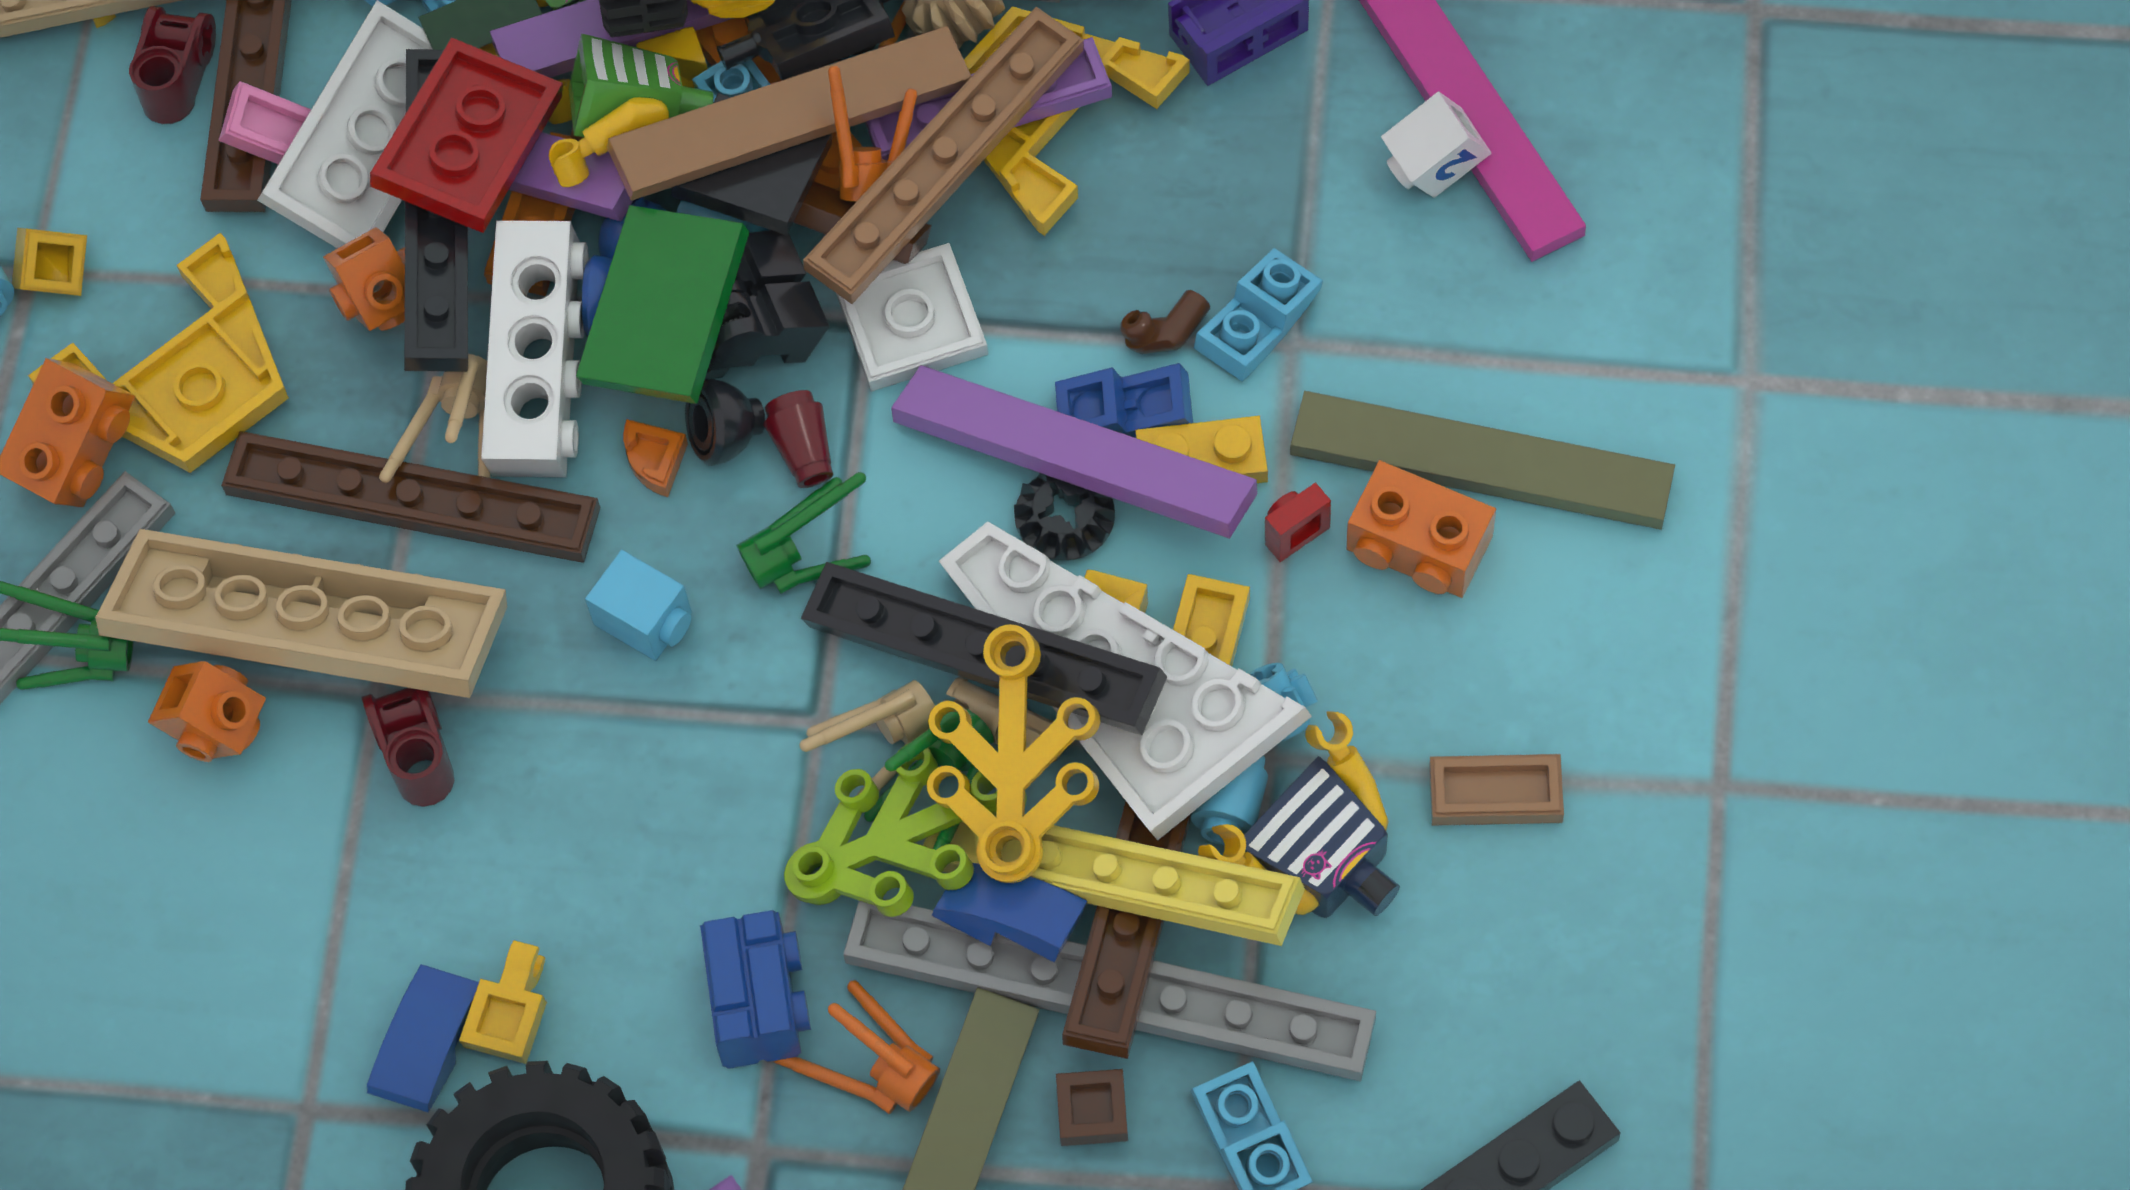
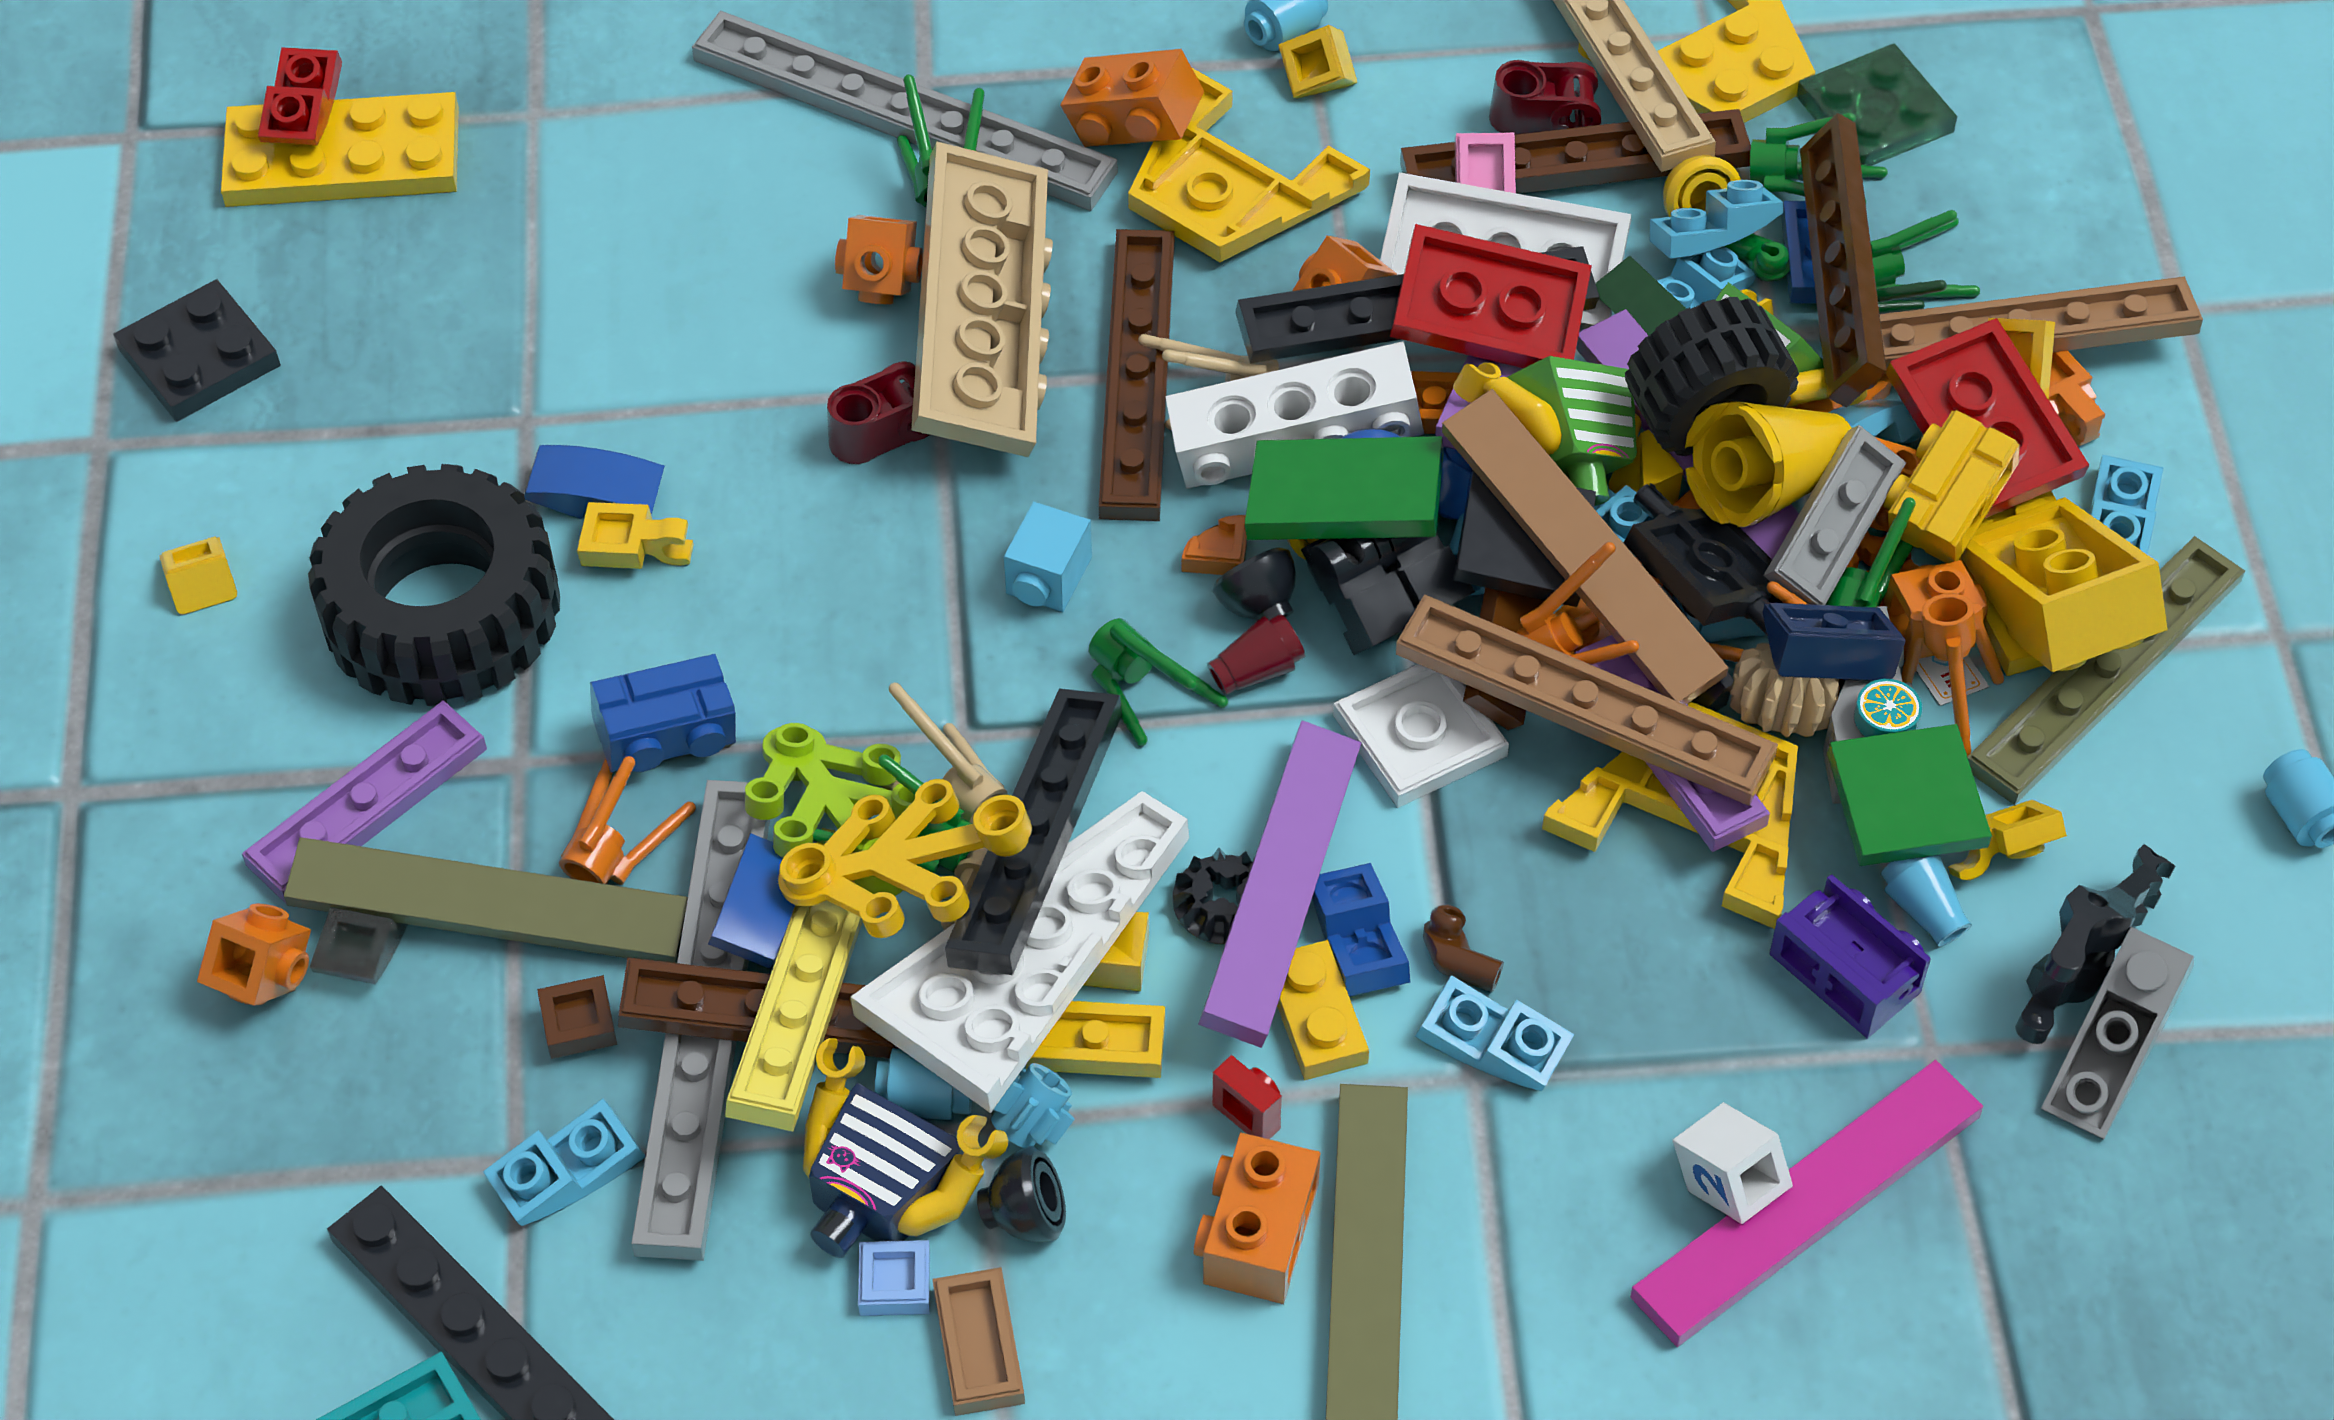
camera: 75 degrees right, 10 degrees down
(1375, 723) = (1024, 1198): none -> black brick
(1420, 853) = (894, 1278): none -> light blue tile

